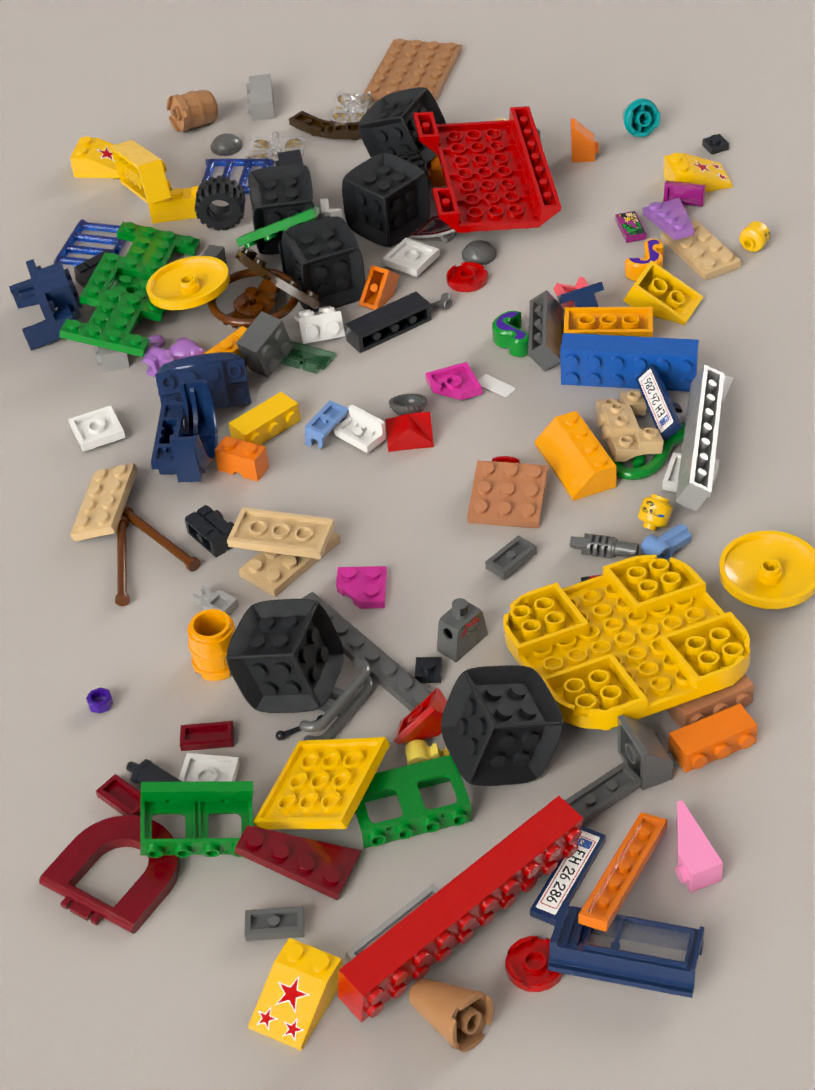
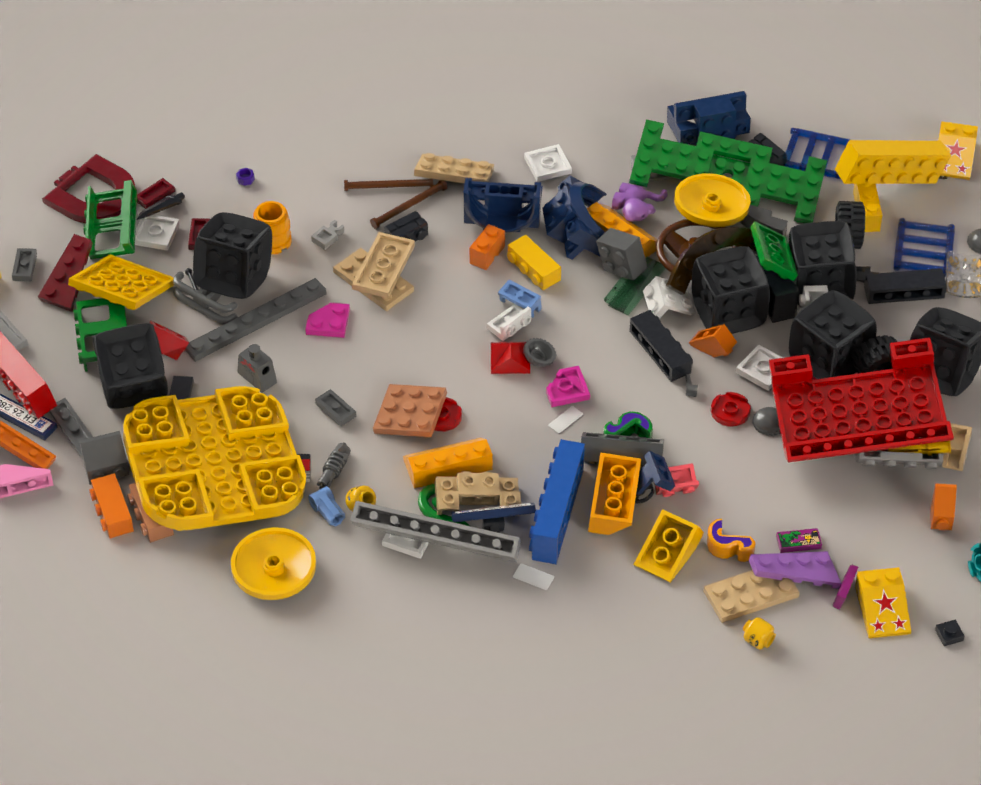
camera: 90 degrees right, 5 degrees up
(428, 669) = (229, 353): black plate -> none

